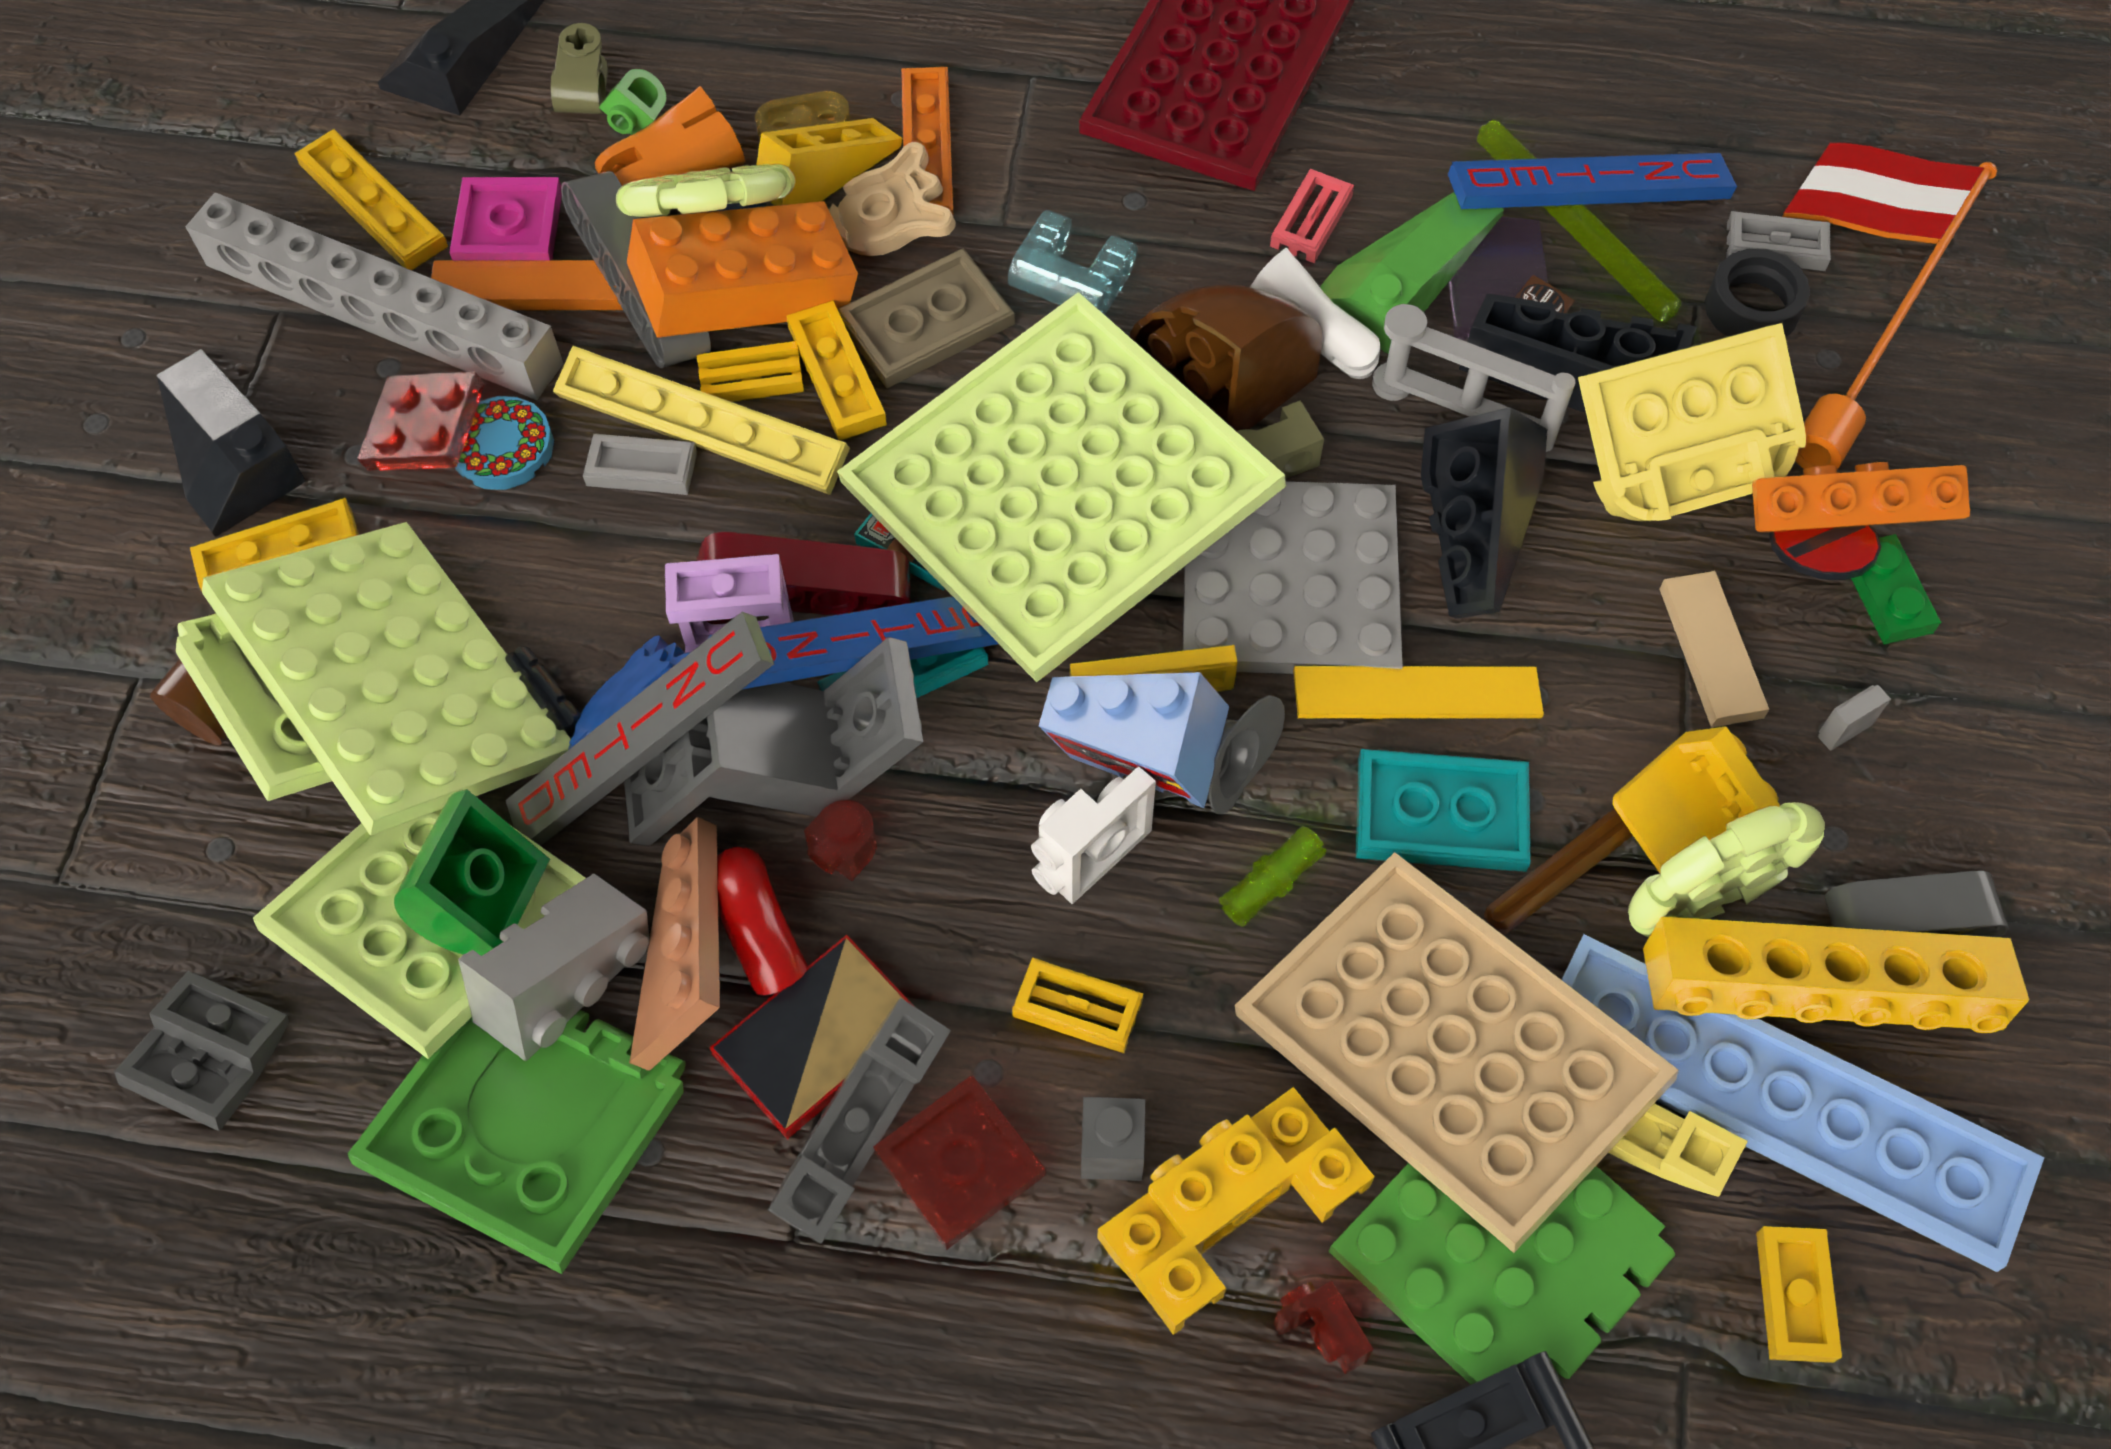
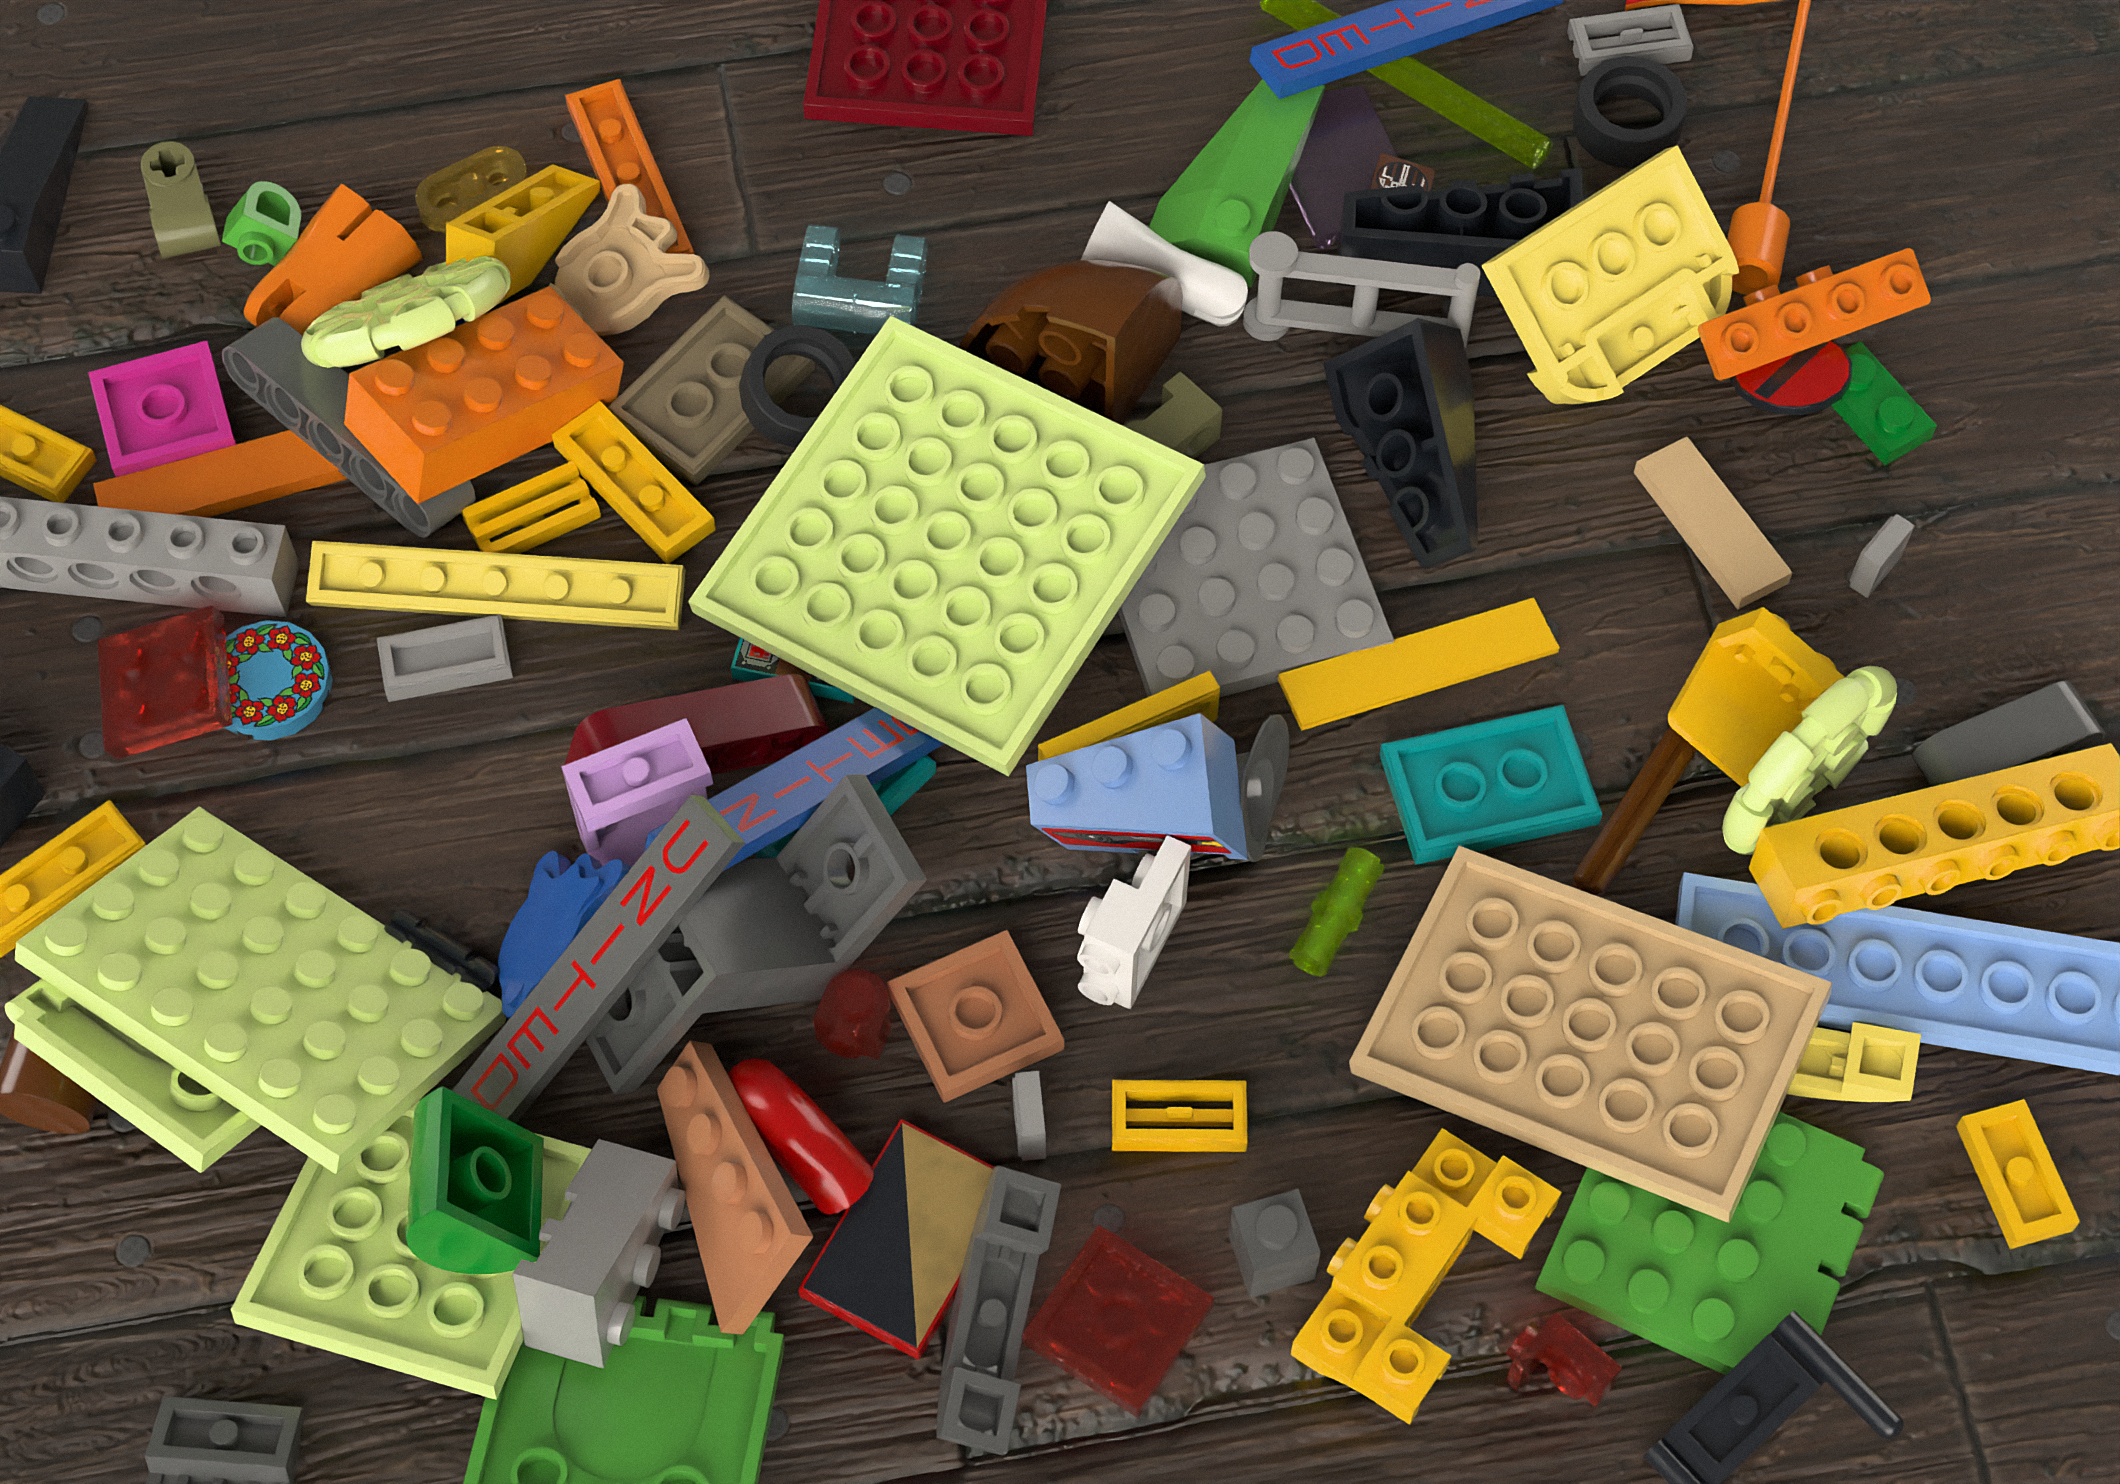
camera: 20 degrees left, 0 degrees up
(939, 870) = (975, 1016): none -> nougat plate
(950, 965) = (1029, 1116): none -> light grey tile
(978, 293) = (789, 340): none -> black tyre
(1299, 241) = (1103, 183): coral tile -> none

